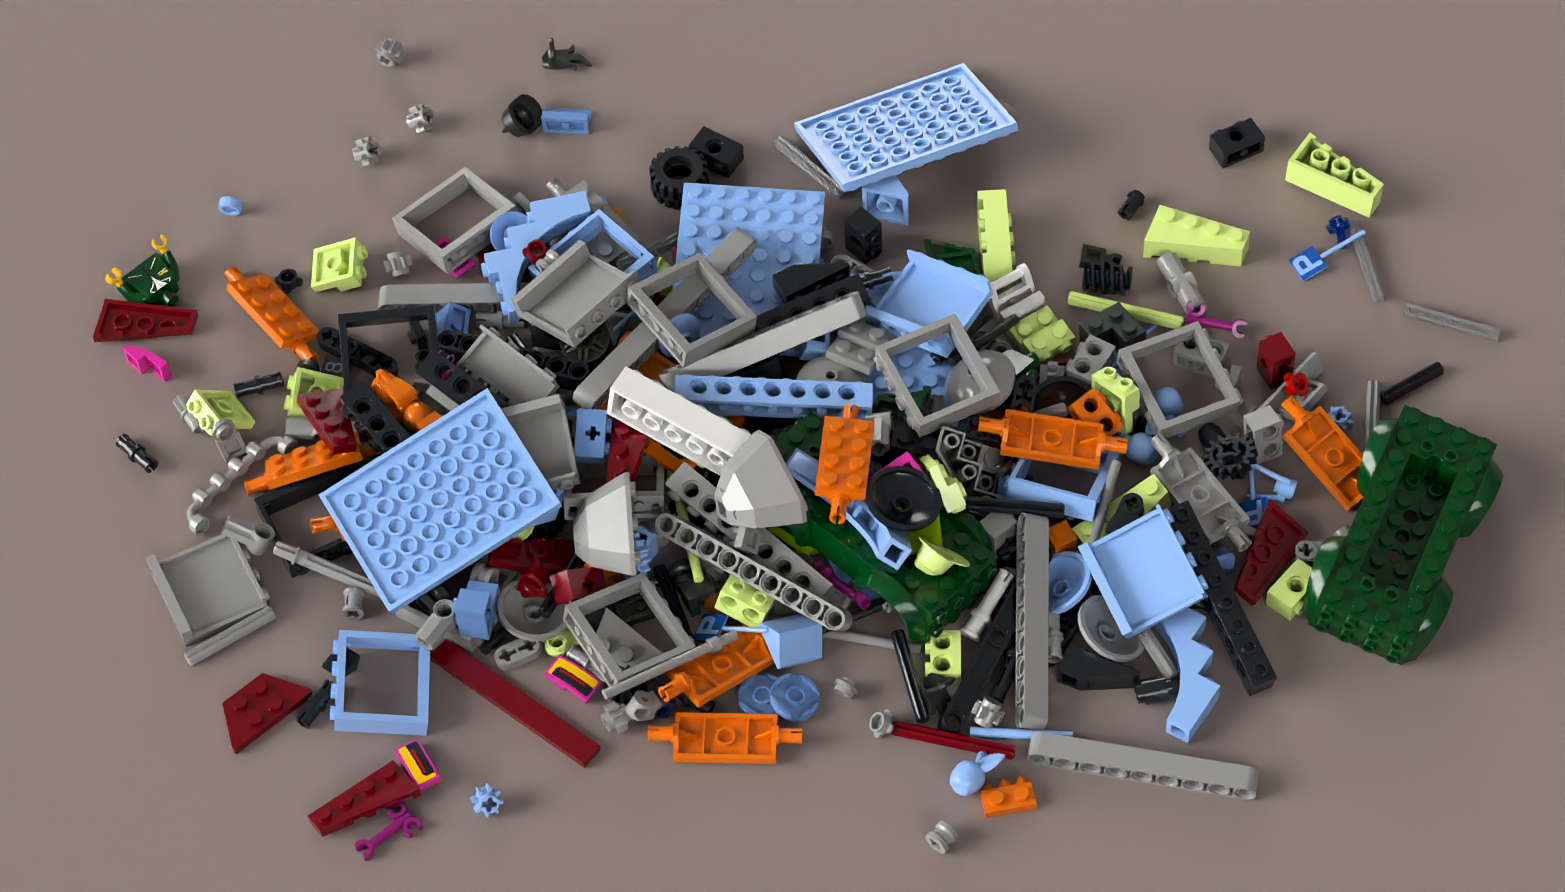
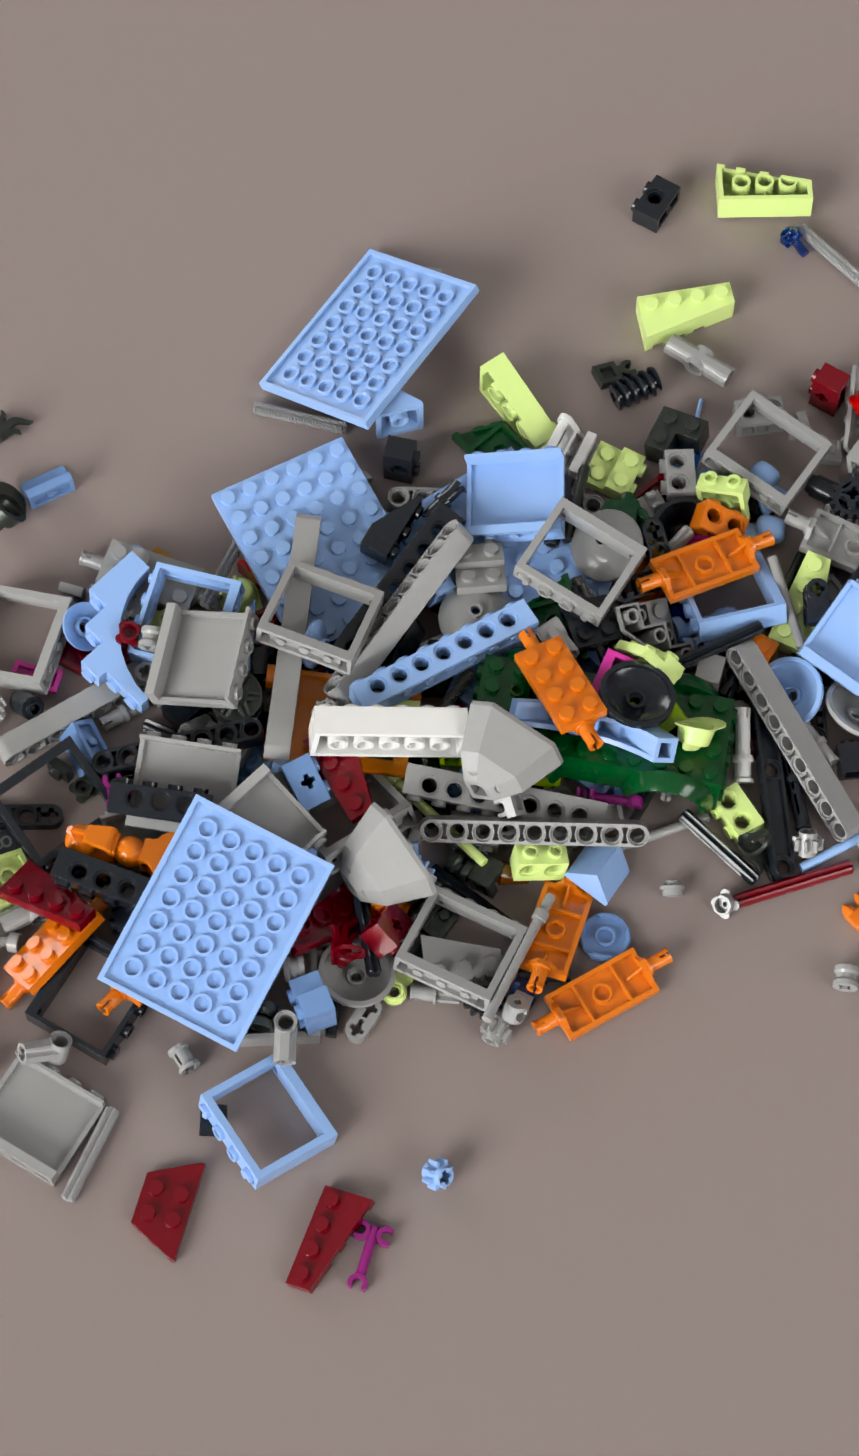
camera: 35 degrees left, 10 degrees up
(315, 705) = (218, 1172): black pin -> none
(324, 566) = (140, 1040): light grey axle -> none
(418, 764) = (350, 1176): slope -> none
(426, 266) = (26, 704): none -> black brick
(515, 703) = (396, 1068): dark red tile -> none
(572, 677) = (429, 1015): slope -> none
(674, 163) = (189, 473): black tyre -> none
(714, 624) = (517, 897): piece -> none
(719, 151) = (199, 439): black brick -> none
(794, 697) = (635, 922): medium blue tile -> none
(970, 775) = (832, 908): light blue piece -> none
(1004, 466) = (679, 611): pearl dark grey axle -> none
(1133, 201) = (605, 303): black pin -> none
(1138, 313) = (652, 412): yellowish green axle -> none
(1194, 316) = (735, 384): magenta bar -> none
(1311, 263) = (789, 283): piece -> none

